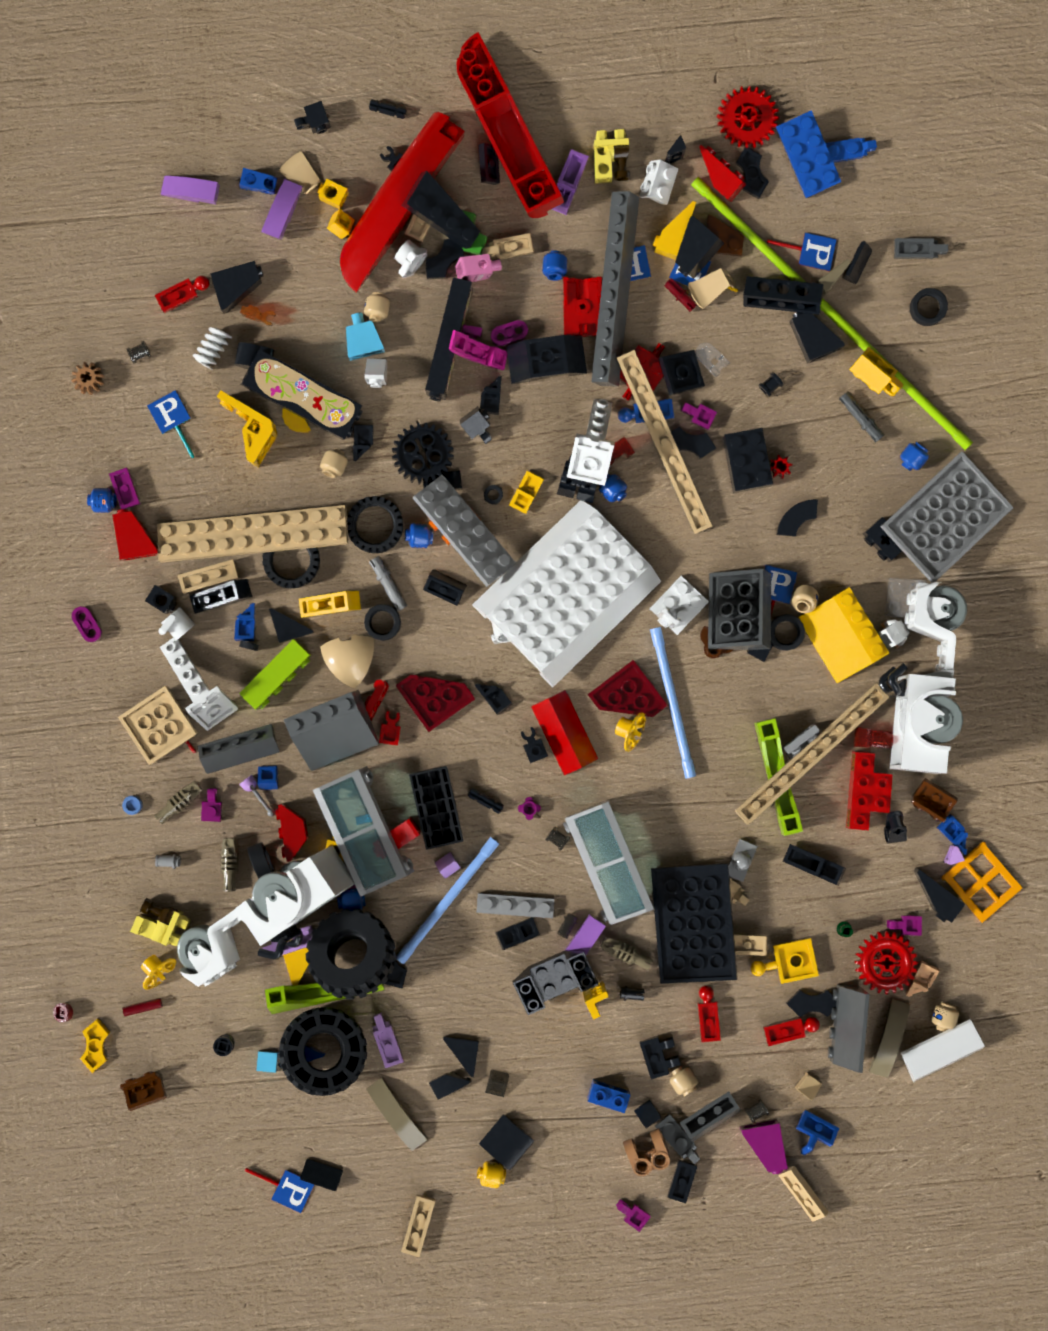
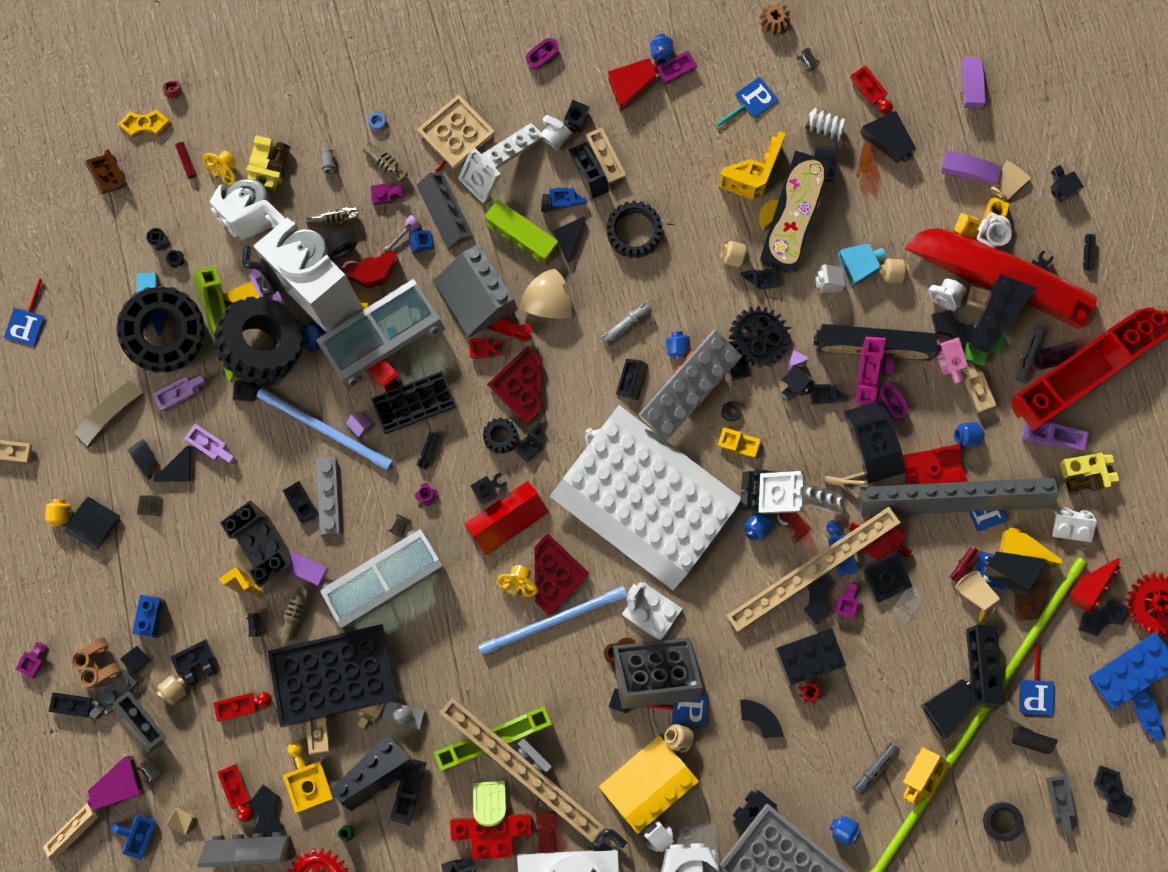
camera: 85 degrees right, 10 degrees down
(246, 1034) = (175, 254): none -> black plate
(252, 534) = (653, 189): tan plate -> none
(258, 181) = (993, 141): blue leg -> none
(321, 1174) = (42, 350): black slope -> none
(330, 604) = (598, 272): yellow slope -> none
(355, 196) = (997, 230): none -> white piece
(368, 619) = (587, 310): black tyre -> none
(370, 502) = (695, 284): black tyre -> none
(445, 1017) = (209, 444): none -> lavender hinge
(453, 421) = (797, 359): none -> lavender slope
(482, 738) = (500, 424): none -> black tyre
(489, 192) = (1027, 361): none -> dark grey pin
(567, 925) = (314, 549): clear smoke pin -> none
(581, 396) = (848, 480): none -> tan plant
(676, 152) = (1107, 534): black slope -> none
(770, 384) = (891, 669): black bush -> none
(793, 895) = (374, 773): none -> black wedge
(800, 632) = (657, 725): black tyre -> none
(838, 789) = (489, 802): none -> yellowish green window
(908, 199) = (1116, 798): none -> black tile

